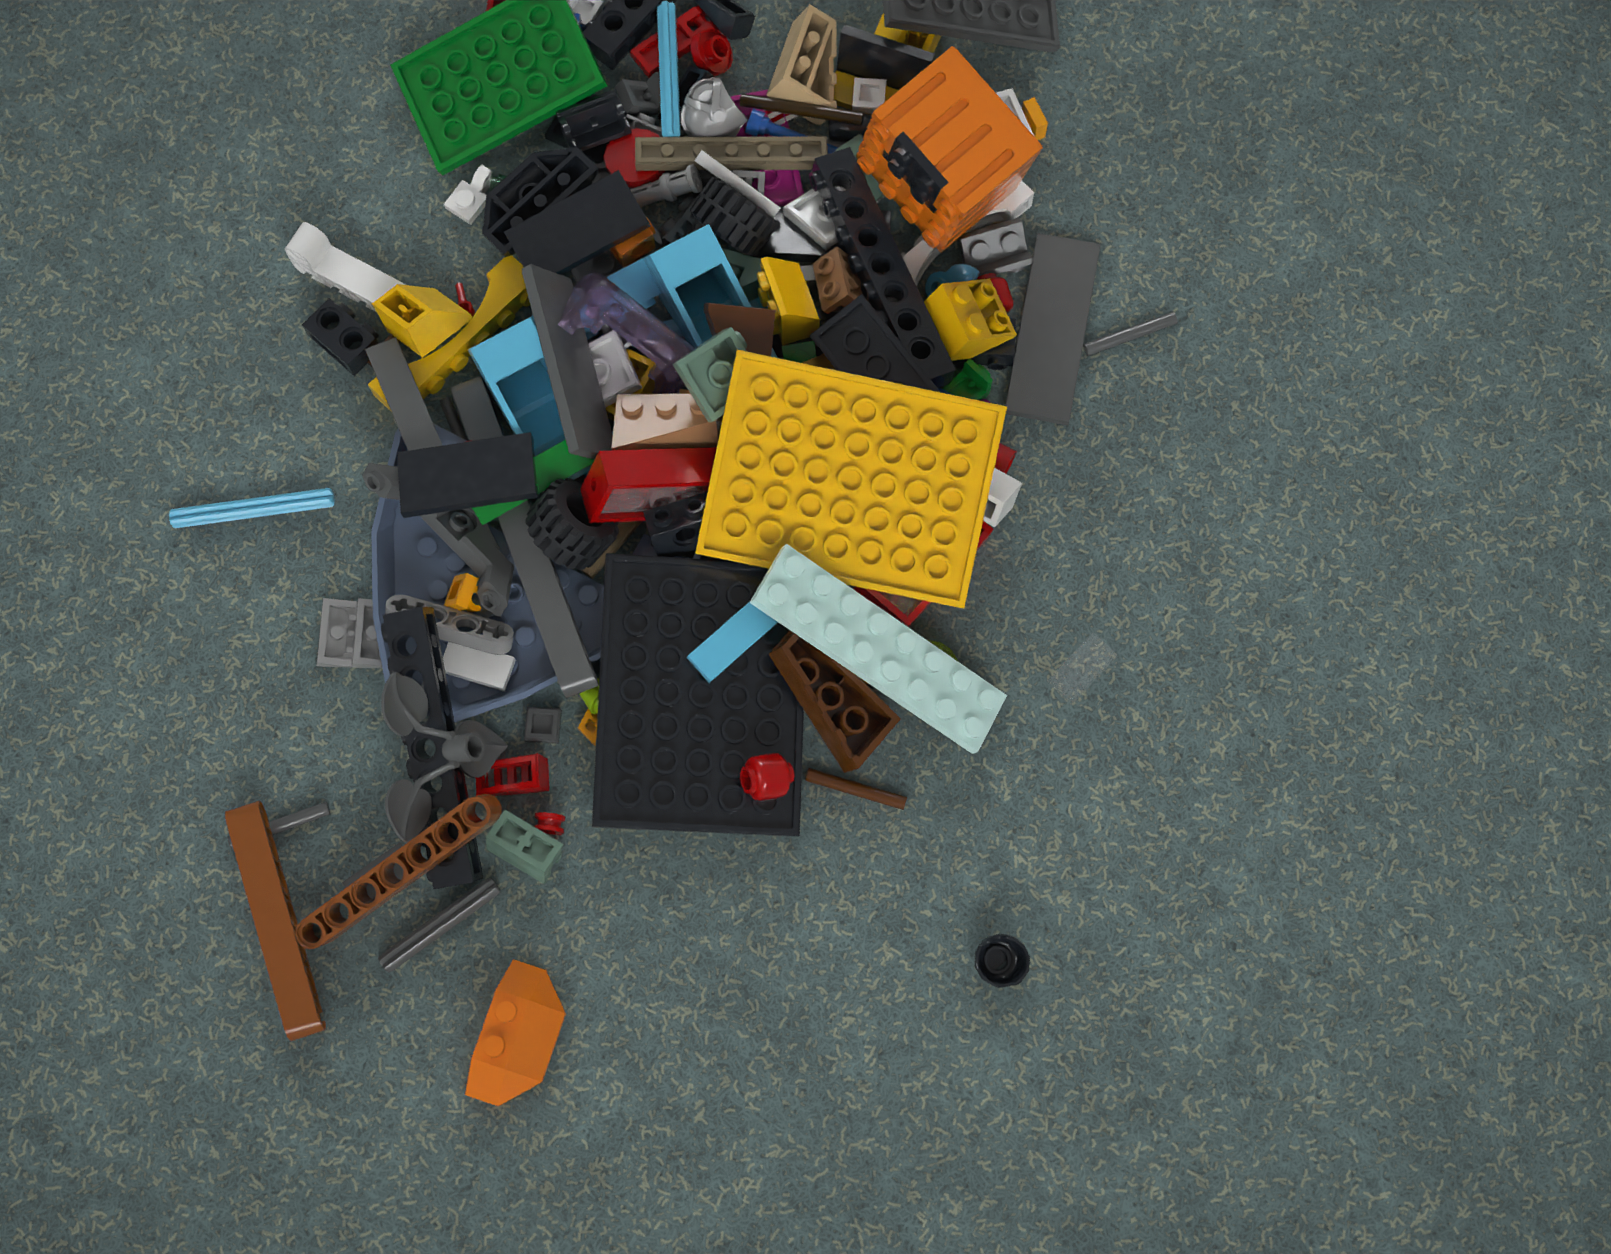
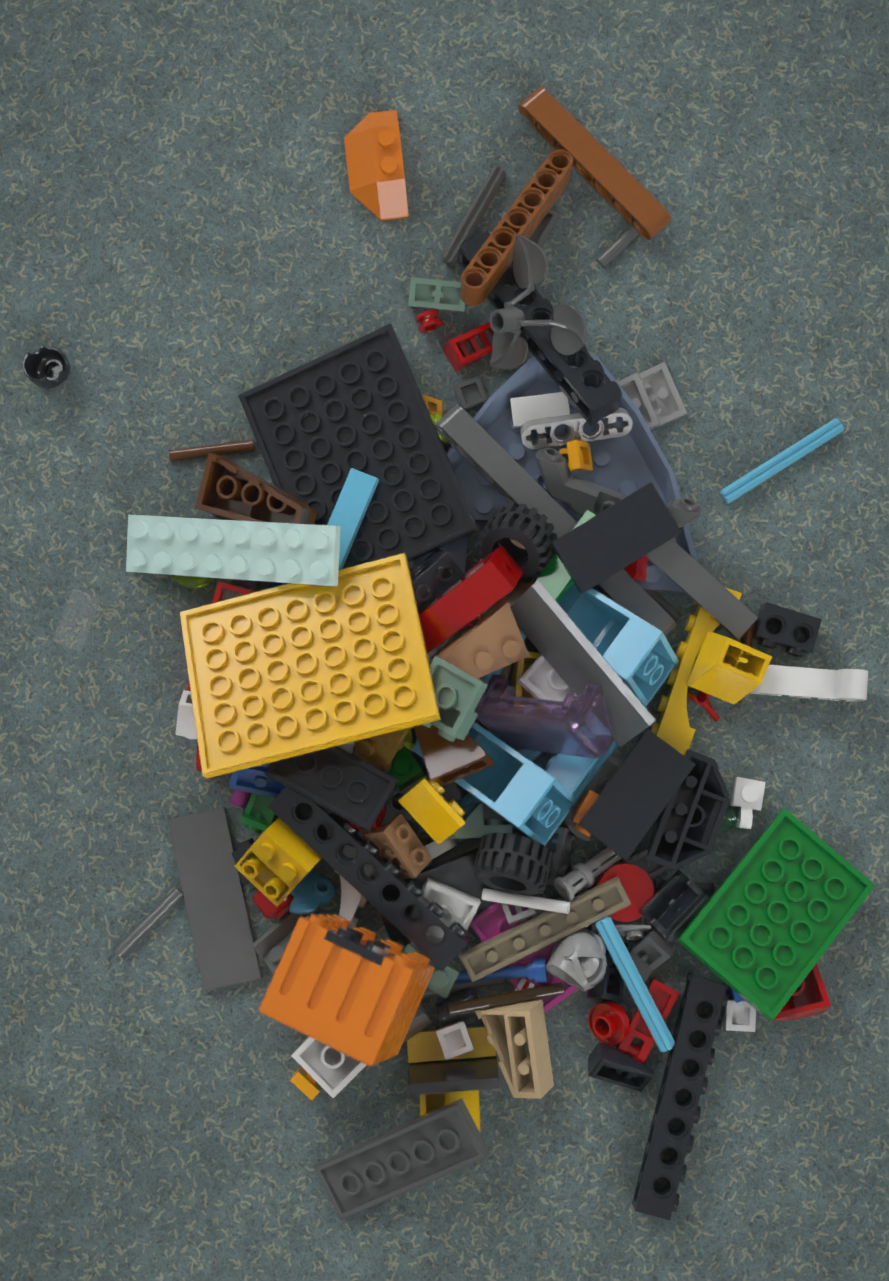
camera: 155 degrees right, 10 degrees up
(766, 776) = (277, 418): red head -> none

